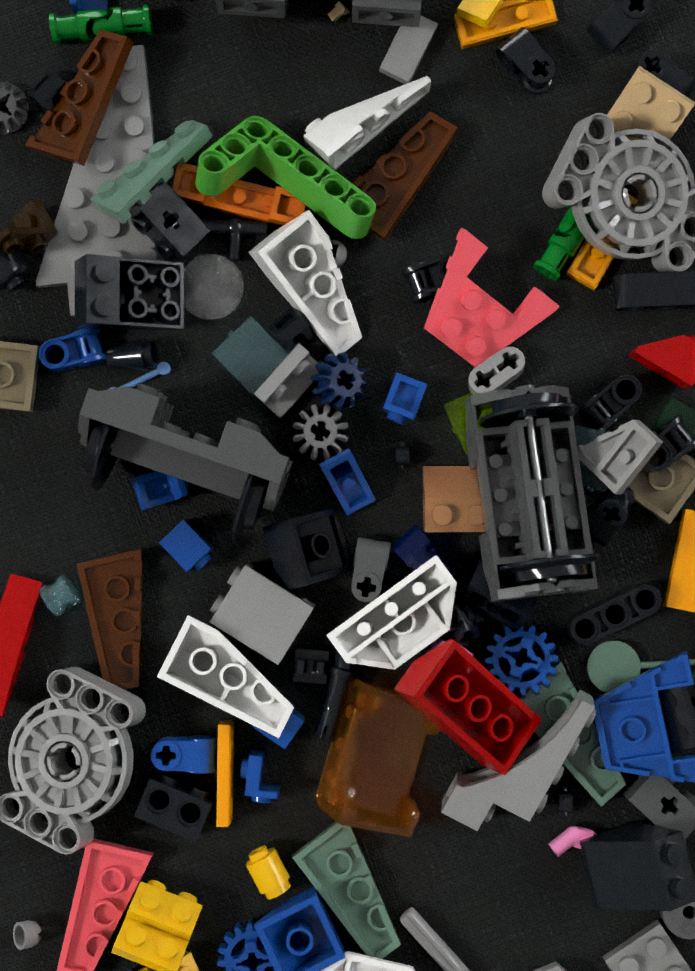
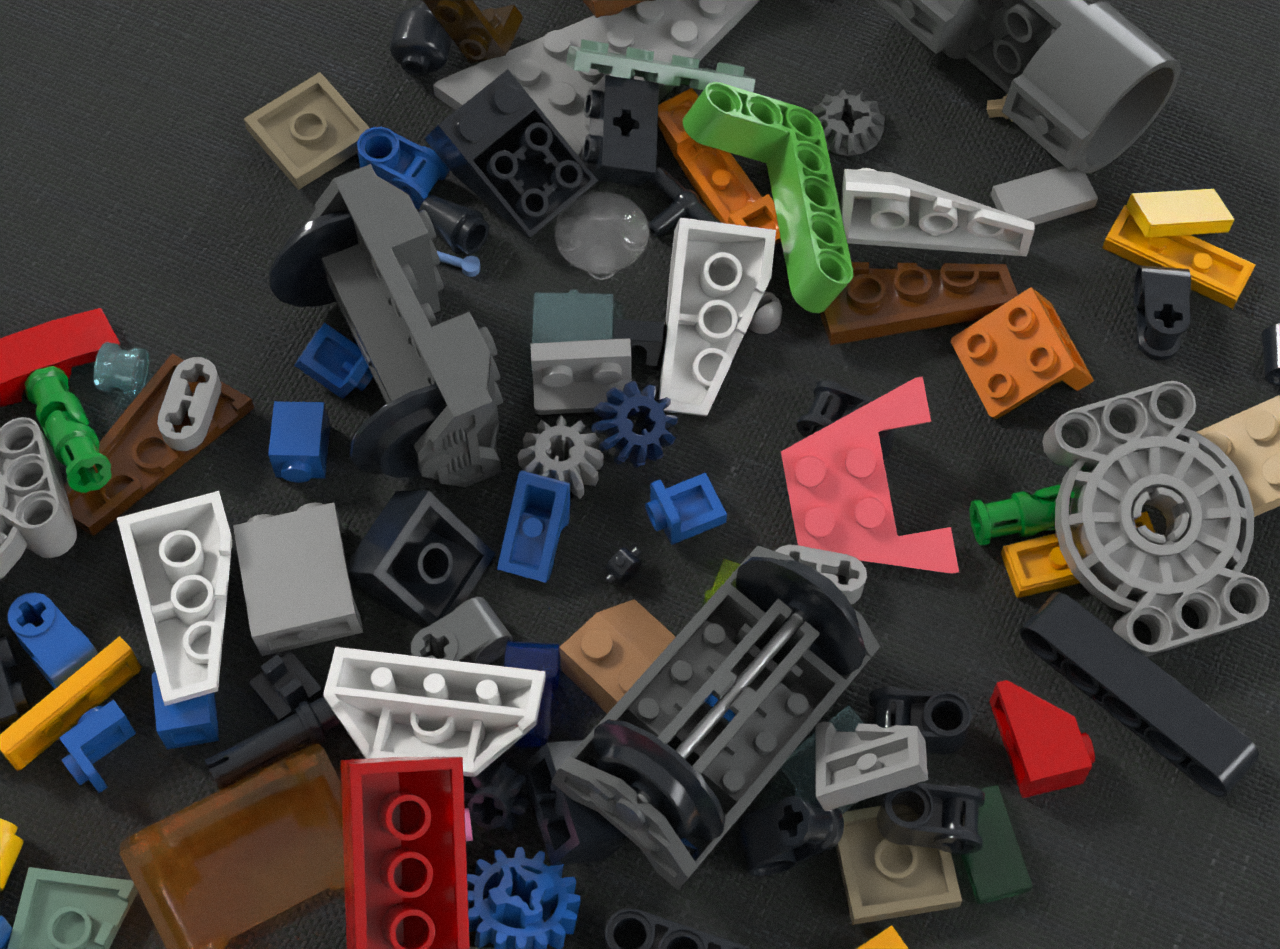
camera: 40 degrees right, 25 degrees down
(74, 653) = (66, 426): none -> green piece
(111, 587) = (199, 406): none -> light grey beam
(267, 83) = (866, 129): none -> dark grey gear
(482, 157) = (1019, 353): none -> orange bracket

